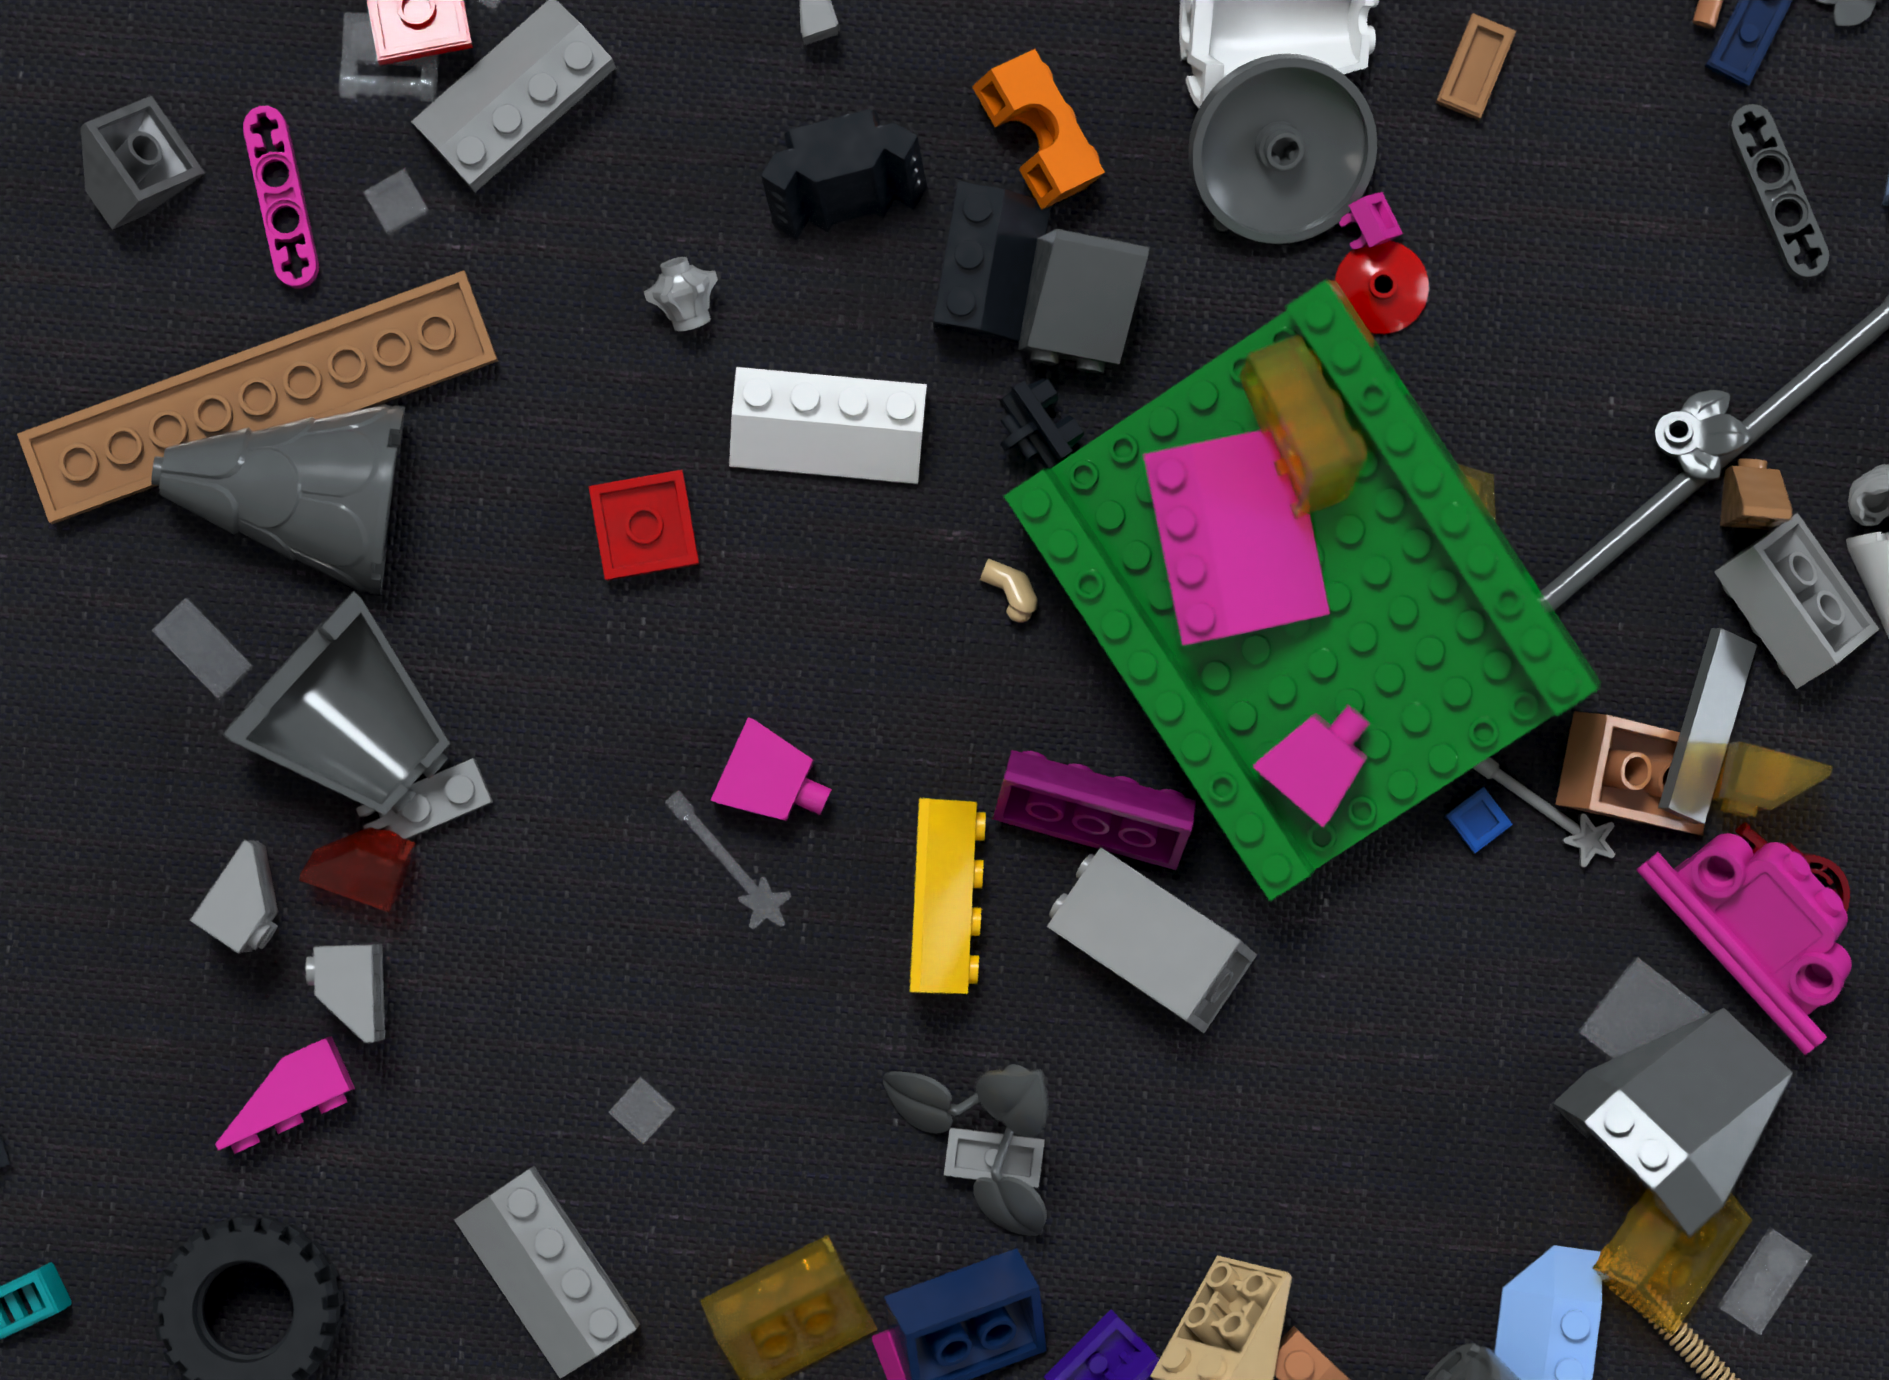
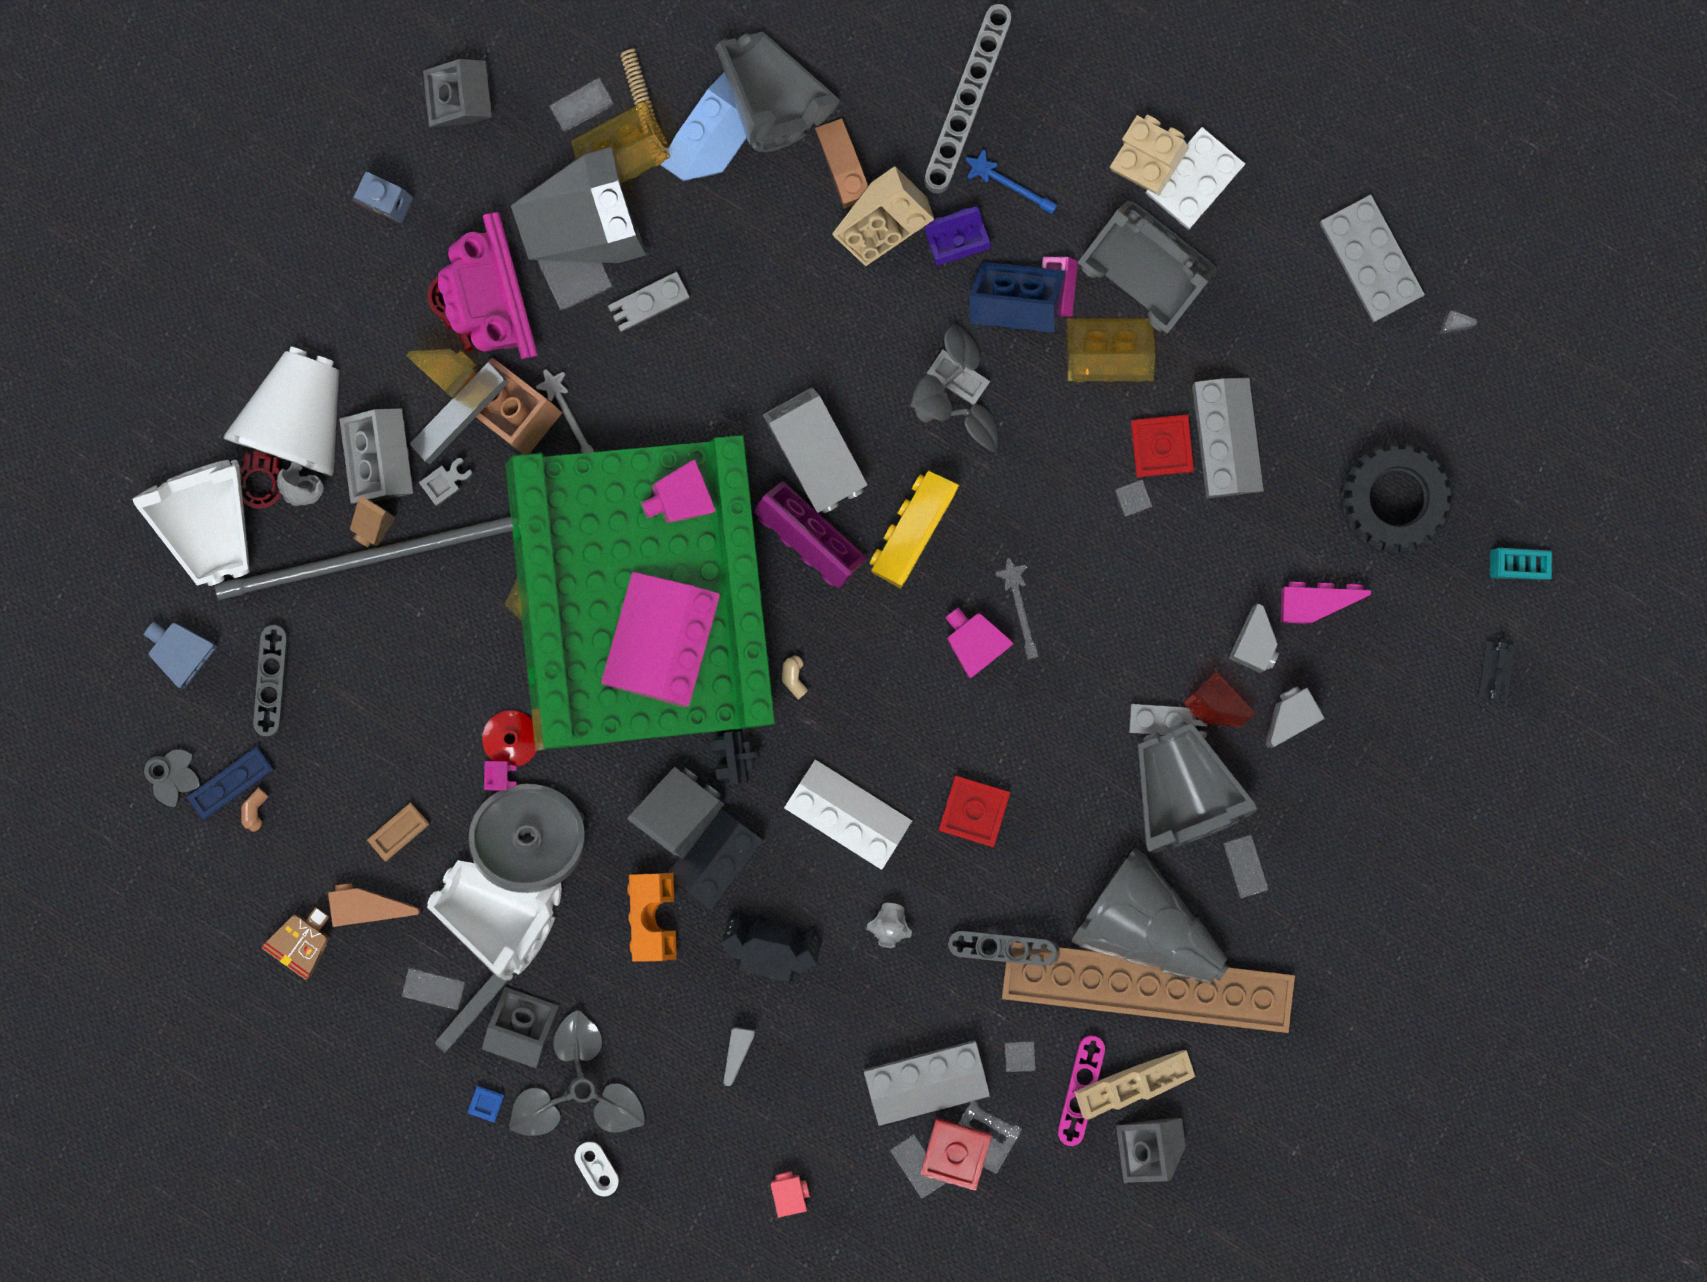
camera: 150 degrees left, 0 degrees up
(206, 246) = (1135, 1083): none -> tan slope
(496, 340) = (1003, 950): none -> dark grey beam
(638, 1210) = (1162, 446): none -> red tile
(1305, 422) = (593, 678): clear yellow wedge -> none
(1478, 820) = (607, 425): blue tile -> none
(1510, 1038) = (650, 301): none -> light grey hinge
(1678, 608) = (442, 484): none -> light grey plate
(1708, 436) = (376, 569): dark grey plate -> none

